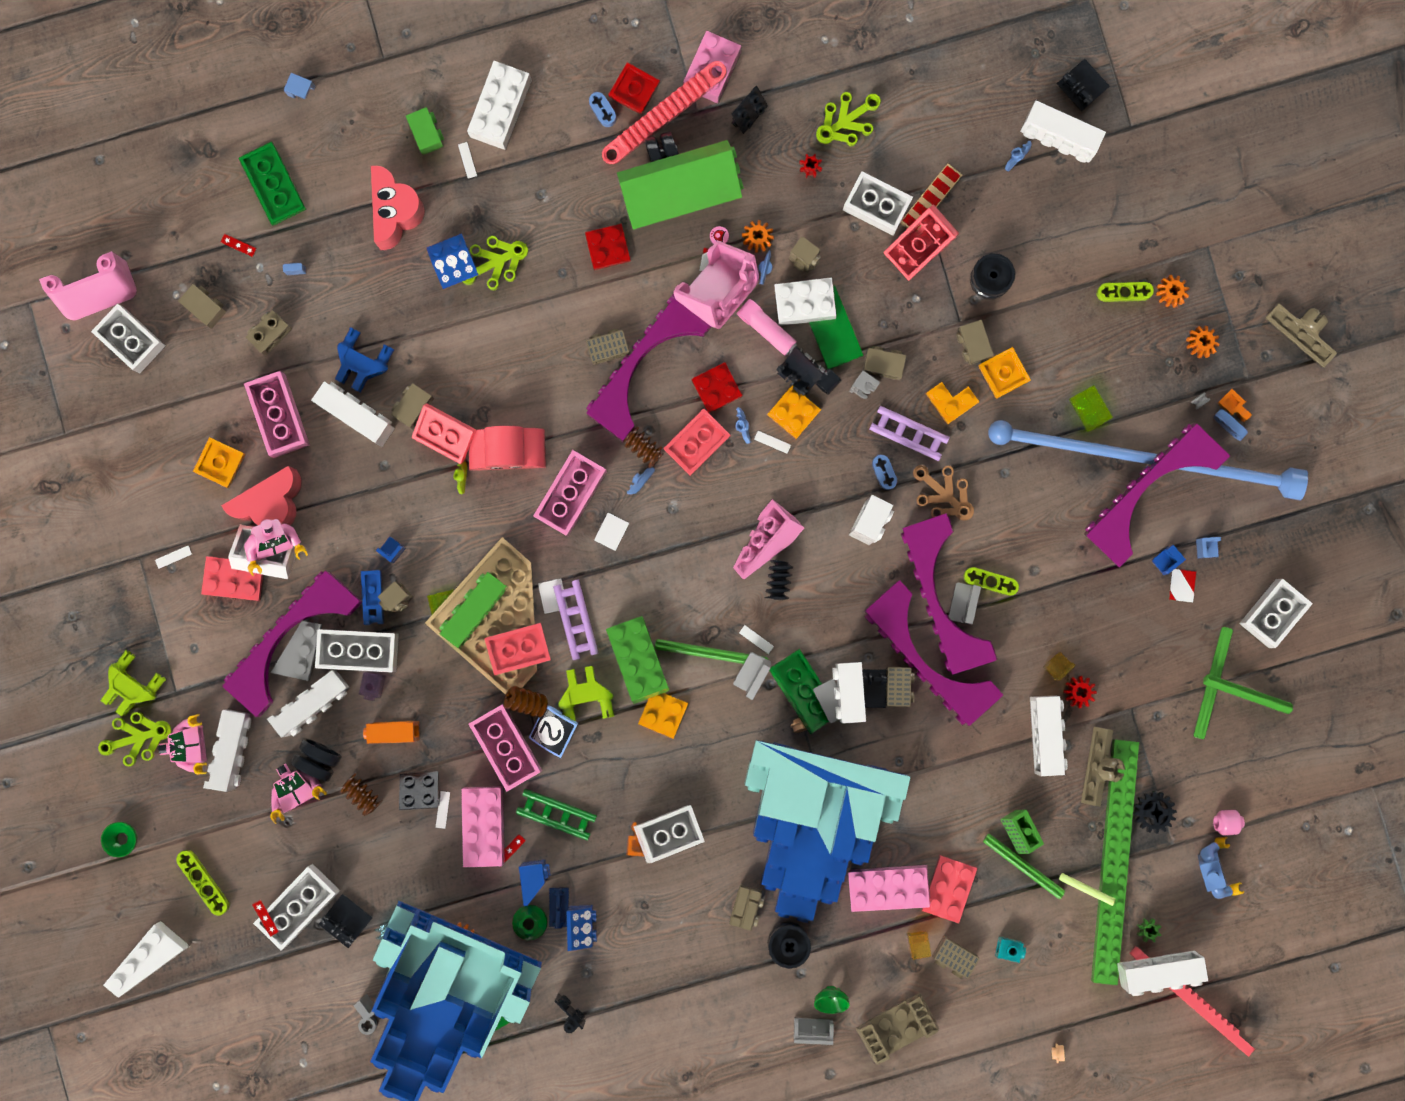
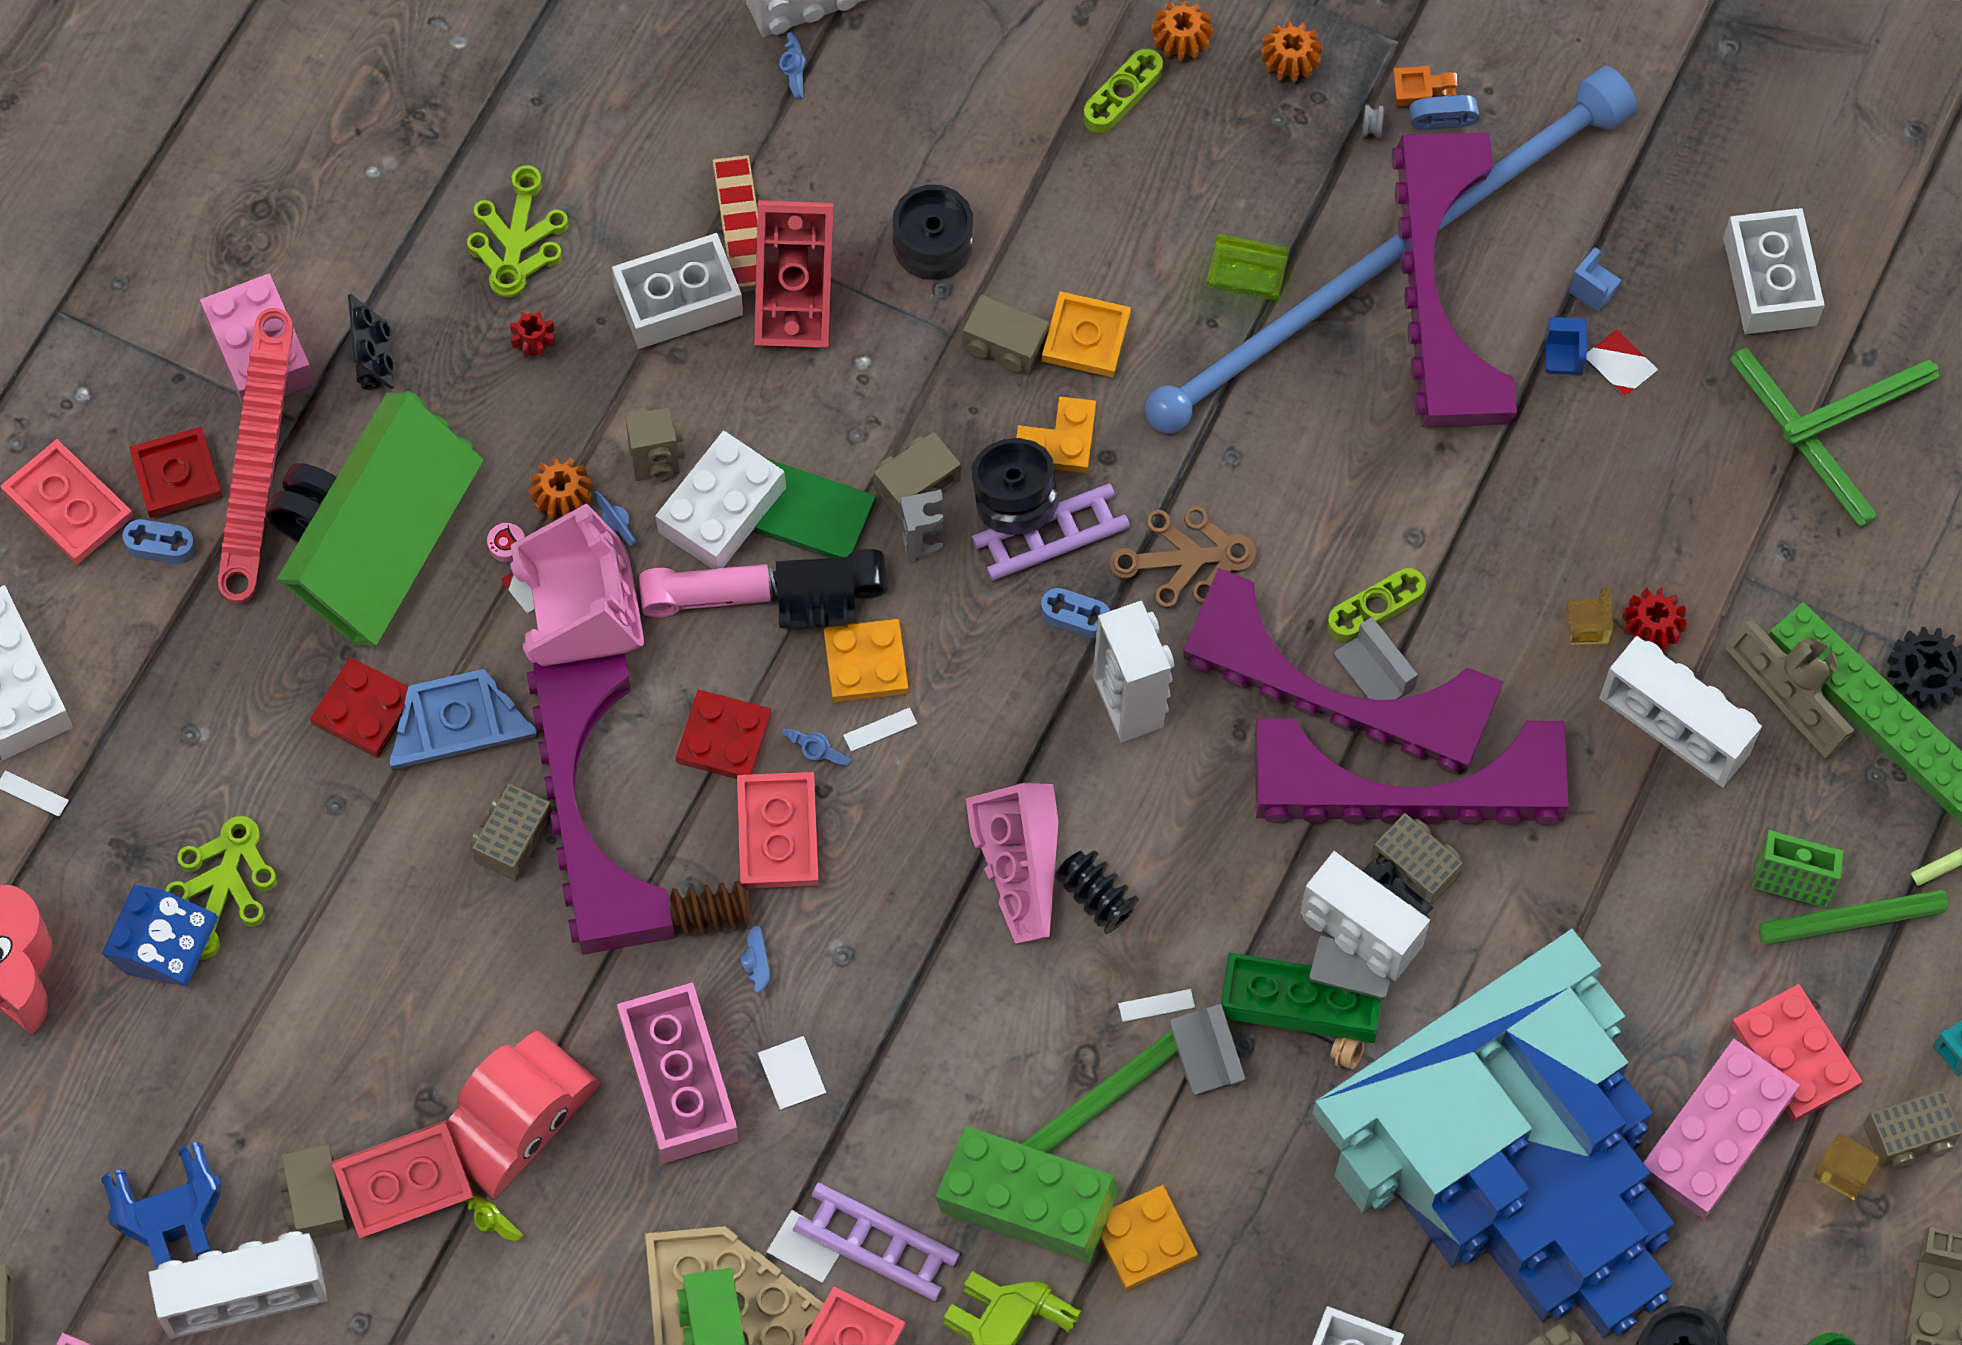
camera: 55 degrees left, 20 degrees down
(586, 60) = (66, 501): none -> coral plate
(632, 285) = (456, 718): none -> medium blue wing
(912, 405) = (1015, 486): none -> black wheel

